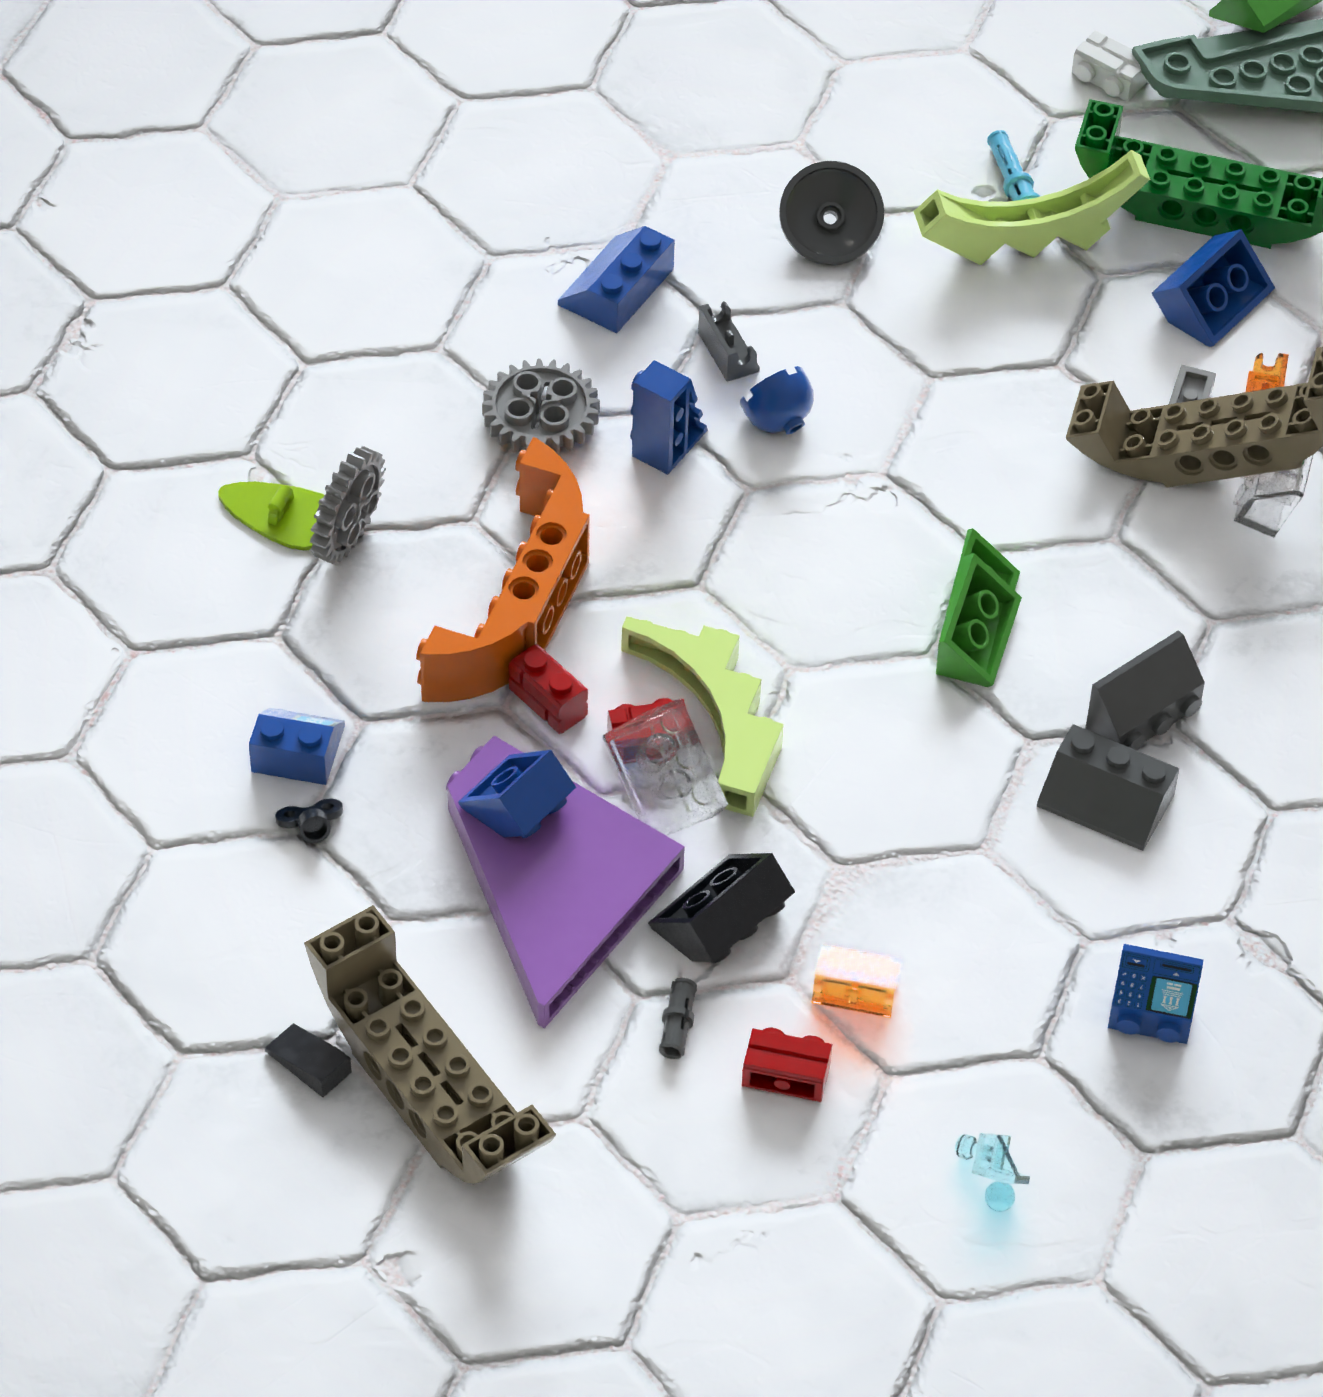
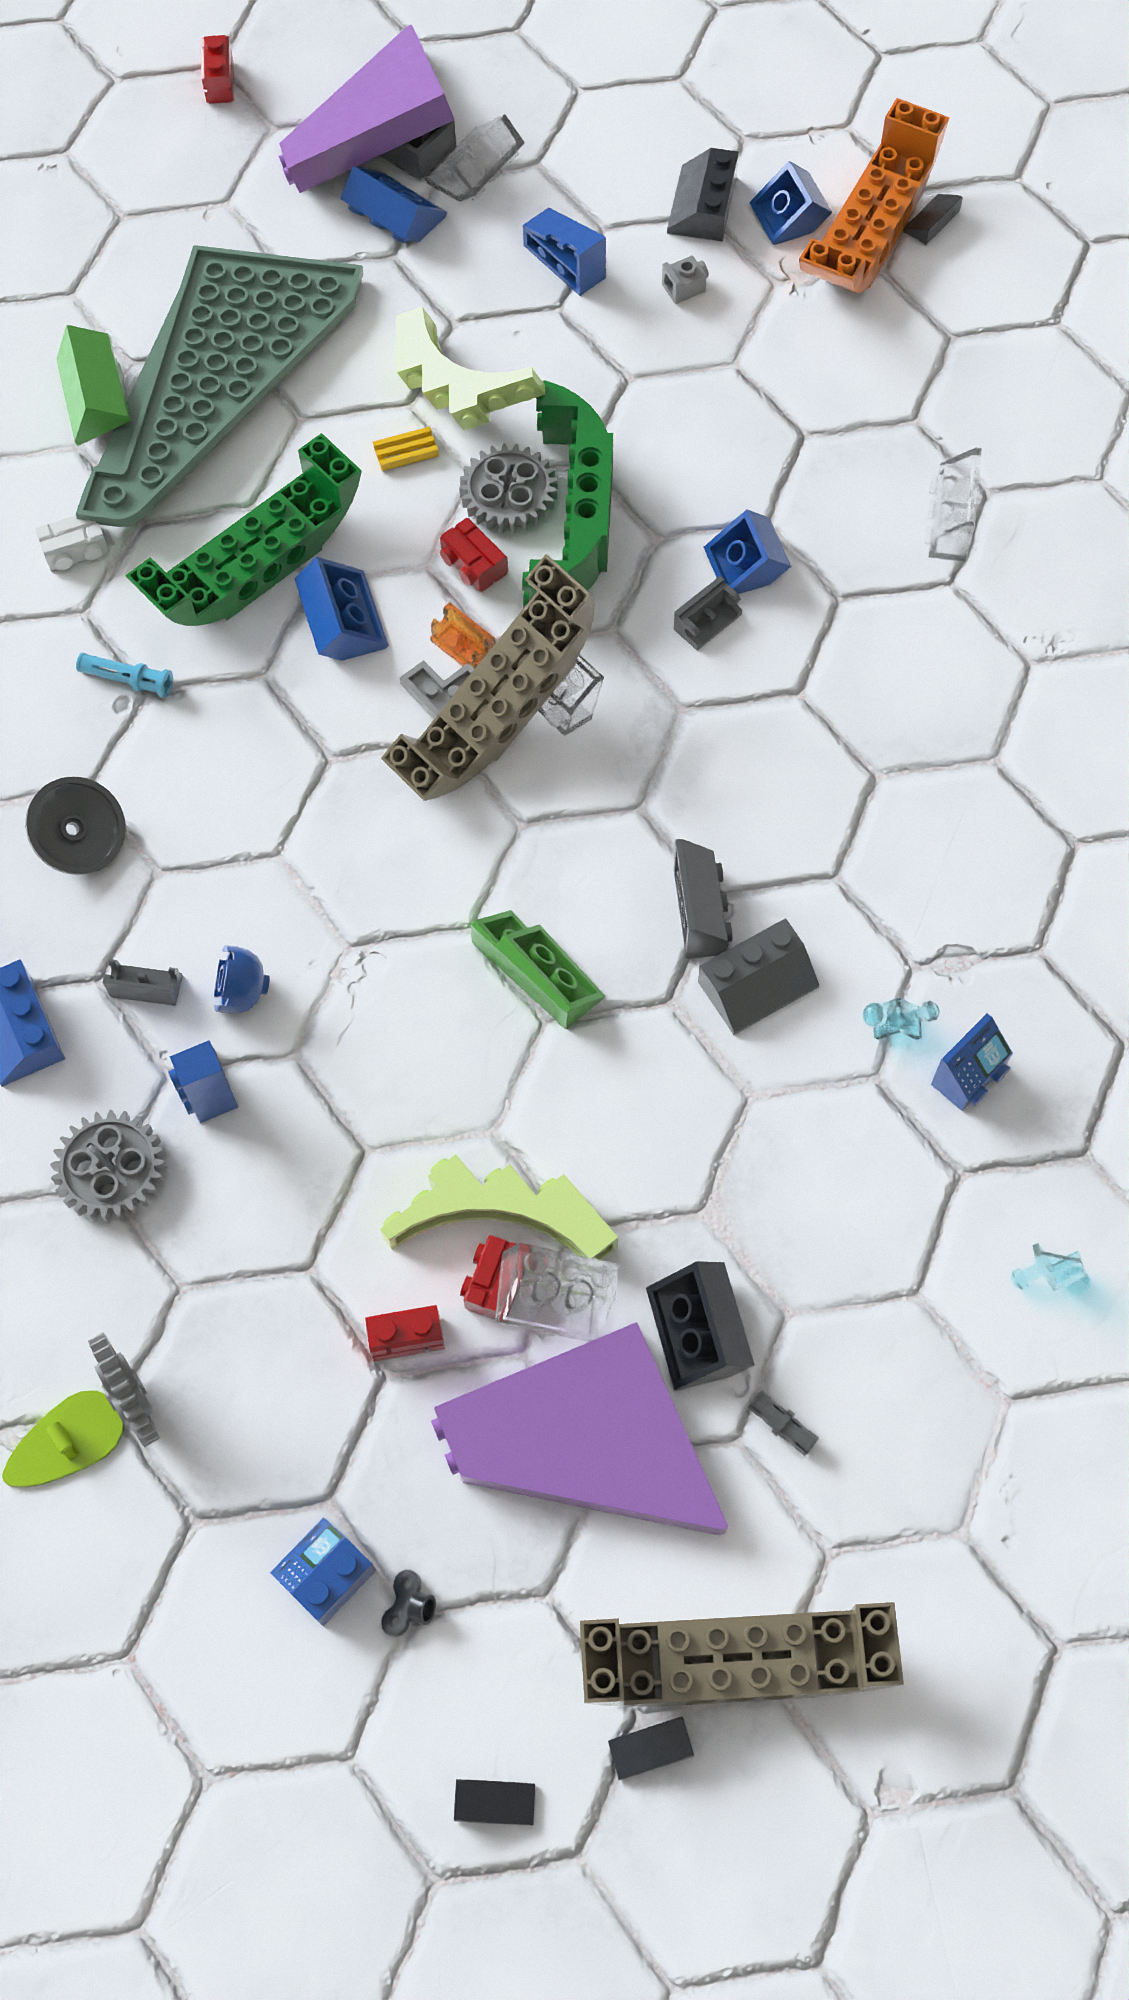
camera: 55 degrees left, 15 degrees up
(183, 961) = (494, 1802): none -> black slope
(519, 793) = (515, 1426): blue slope -> none
(532, 592) = (289, 1258): orange slope -> none
(787, 1064) = (877, 1366): red brick -> none
(856, 980) = (827, 1265): clear orange hinge -> none
(1030, 225) = (209, 659): yellowish green arch -> none
(1158, 919) = (899, 1017): none -> clear light blue piece

